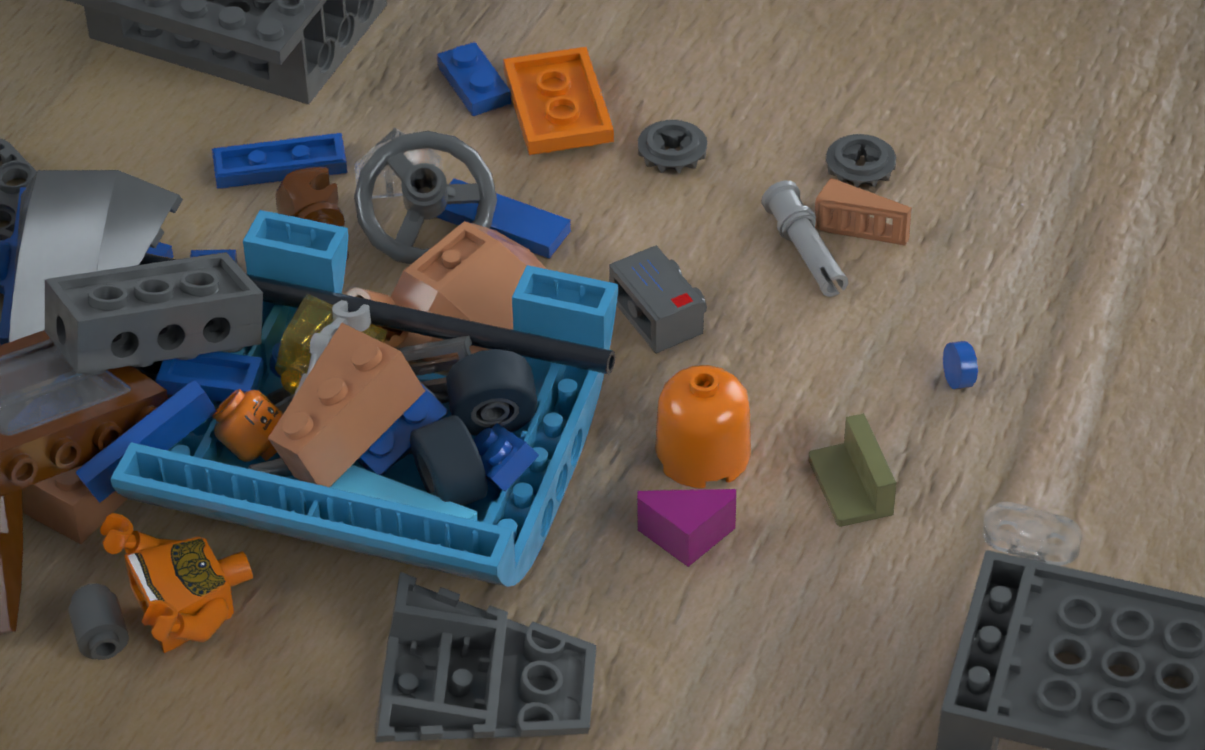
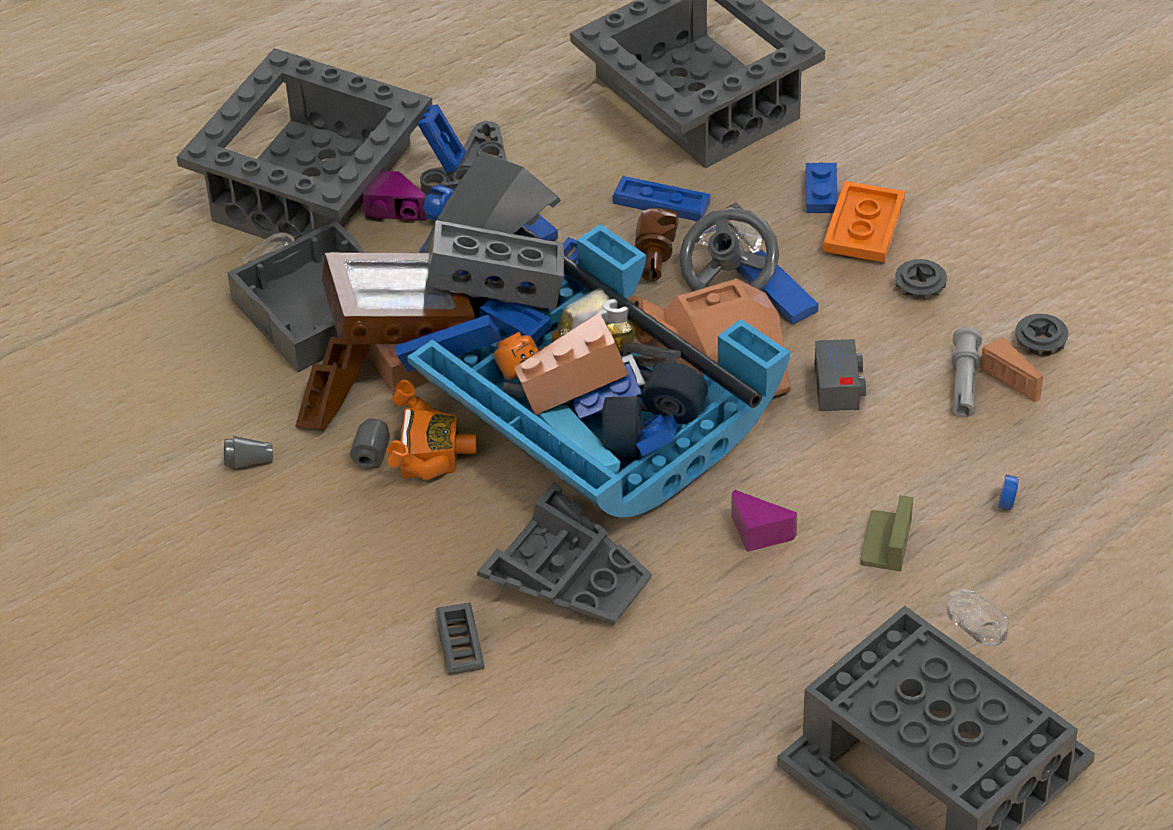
camera: 30 degrees right, 0 degrees up
(703, 426) = (806, 466): orange cylinder -> none

